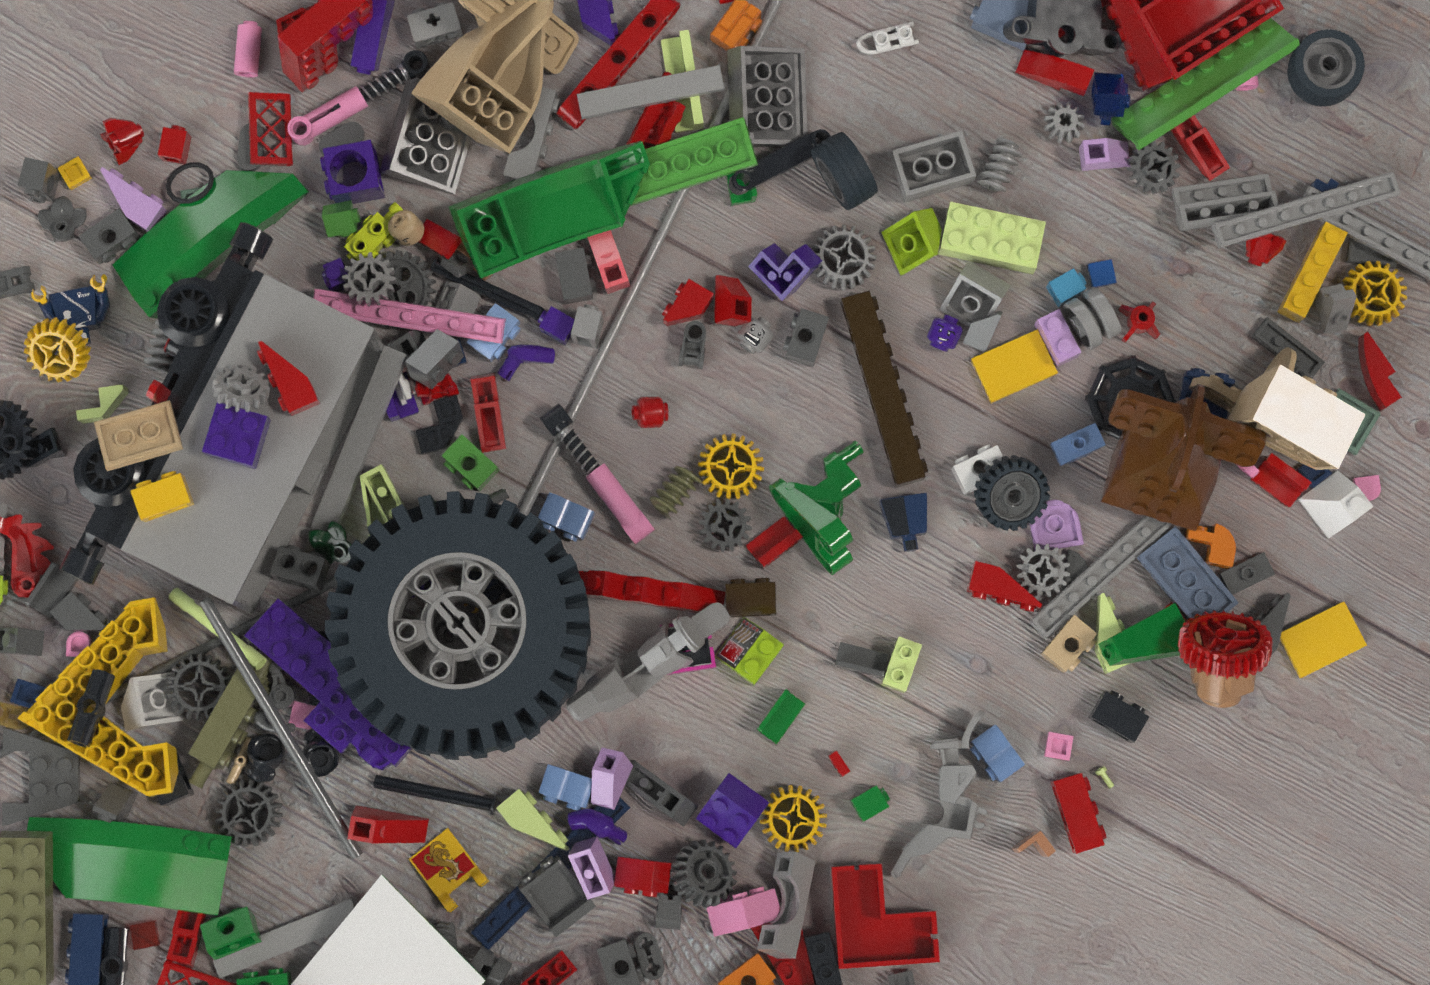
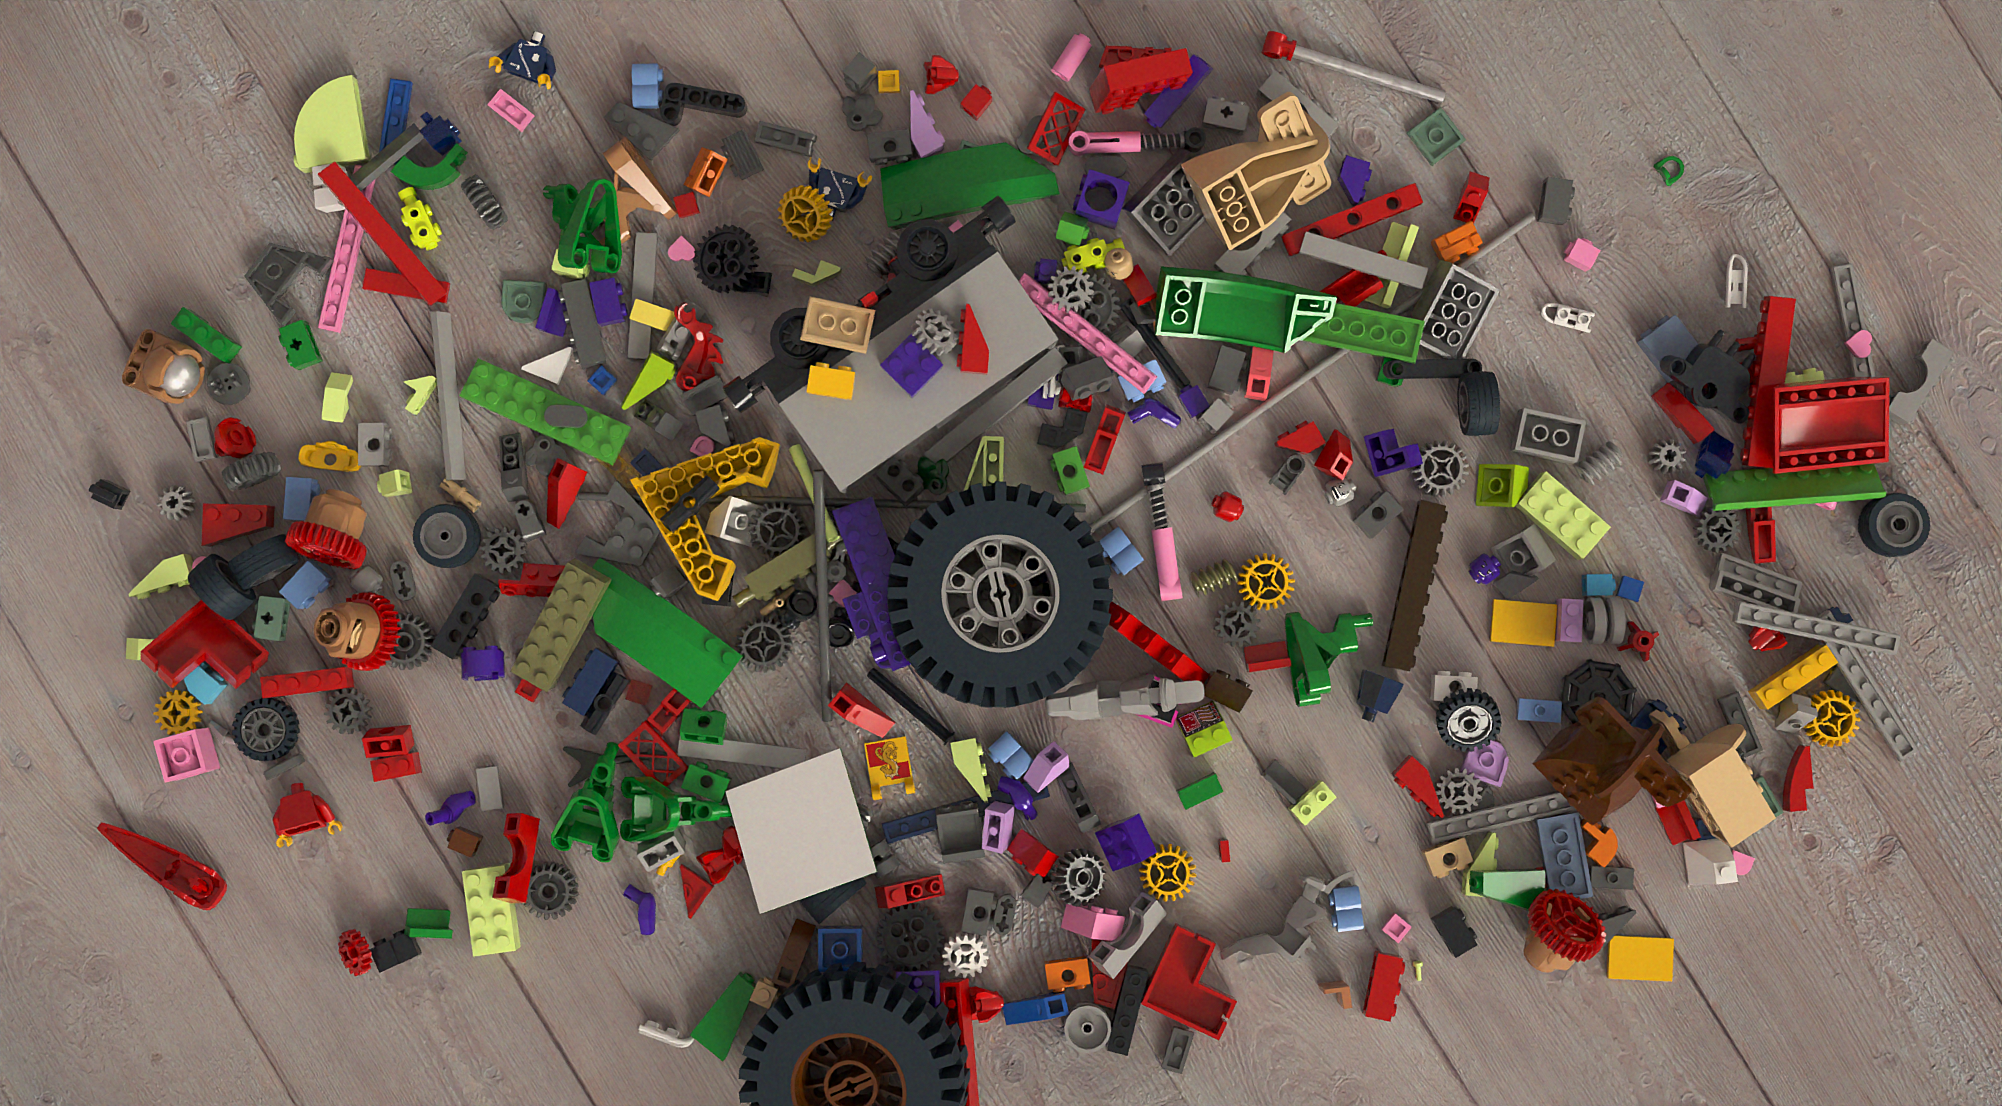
camera: 30 degrees right, 5 degrees up
(180, 169) = (972, 153): black piece -> none
(870, 802) = (1231, 892): green brick -> none

